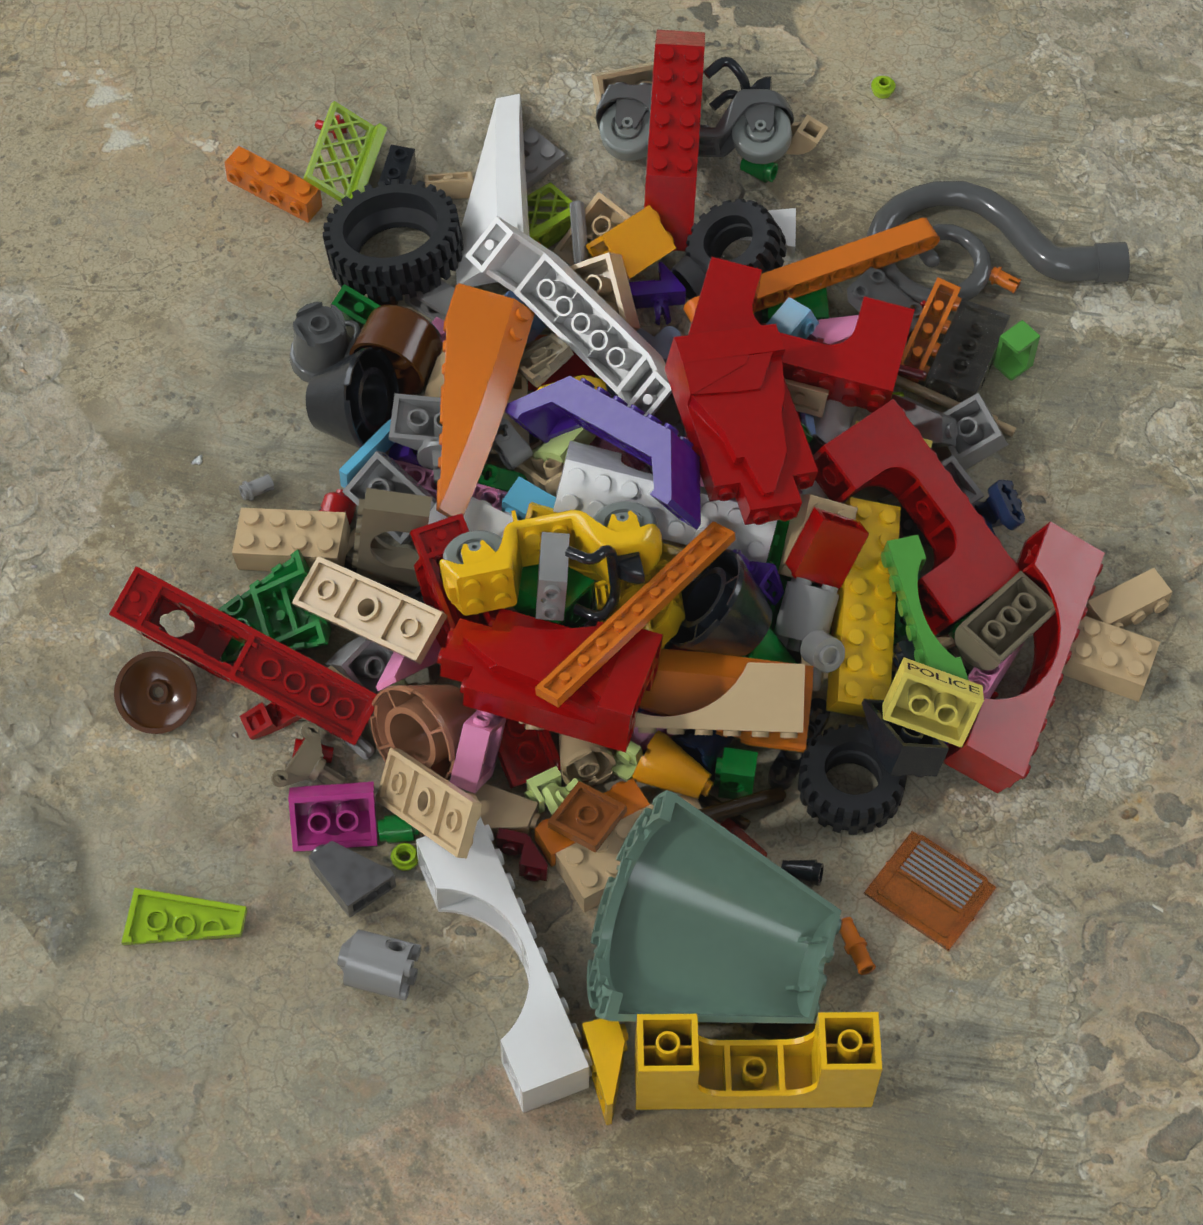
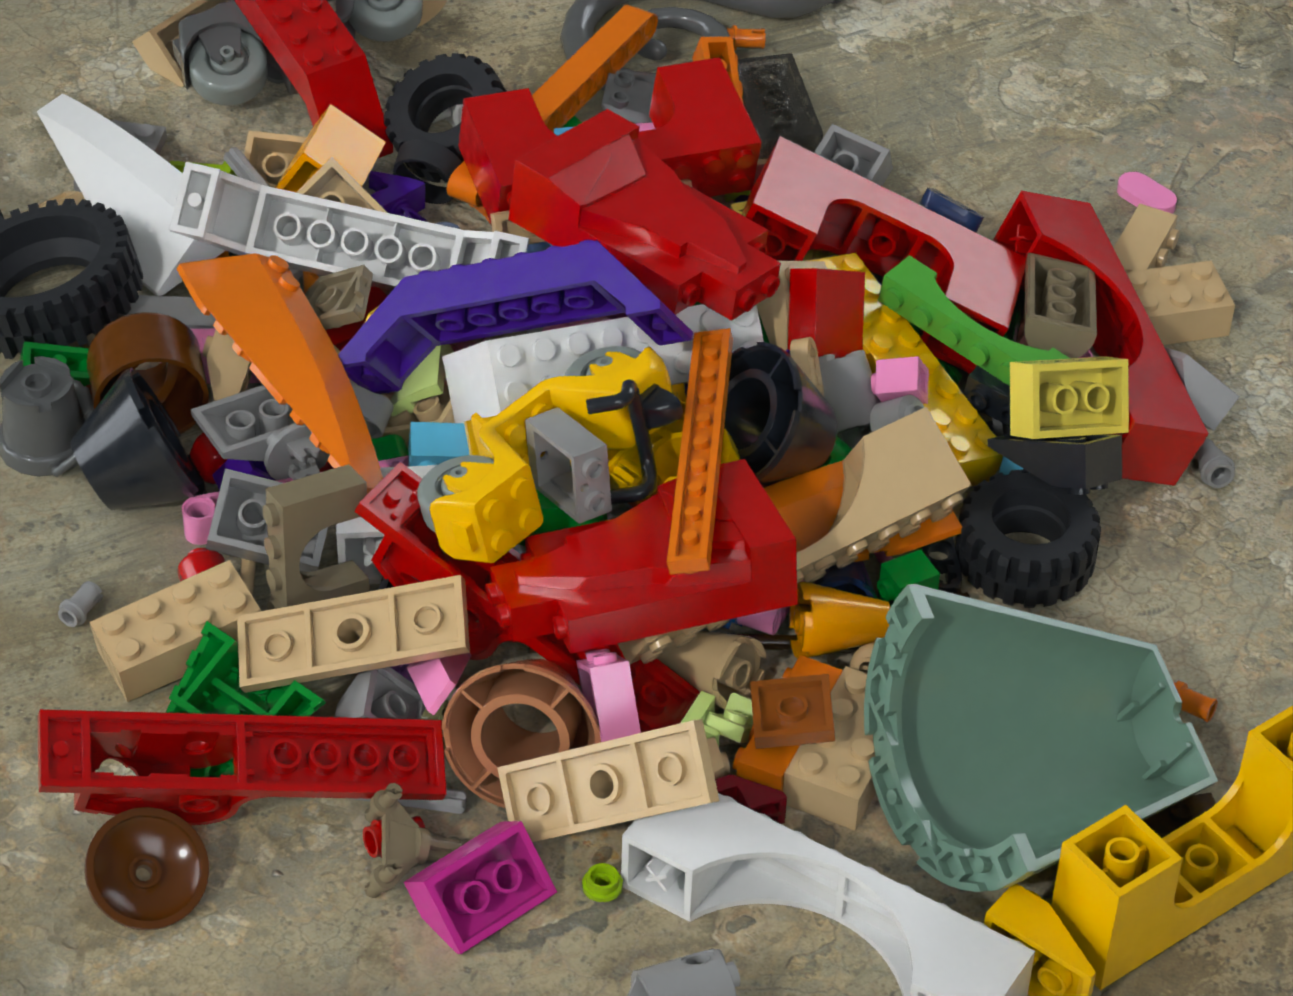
camera: 35 degrees left, 15 degrees down
(266, 719) = (308, 828): red slope -> none
(350, 876) = (557, 937): flat silver slope -> none
(378, 442) = (204, 493): medium azure tile -> none
(395, 830) = (571, 856): green brick -> none
(627, 761) = (772, 635): yellowish green bracket -> none
(763, 172) = (396, 52): green cone -> none
(780, 584) = (806, 356): none -> tan beam
(841, 624) = (900, 378): none -> bright pink brick
(930, 890) = (1197, 605): clear orange piece -> none
(1016, 350) = (825, 81): bright green panel -> none
(1030, 797) = (1214, 465): none -> light grey cone
(1063, 735) = (1207, 393): none -> light grey slope
(1178, 559) = (1141, 189): none -> bright pink tile

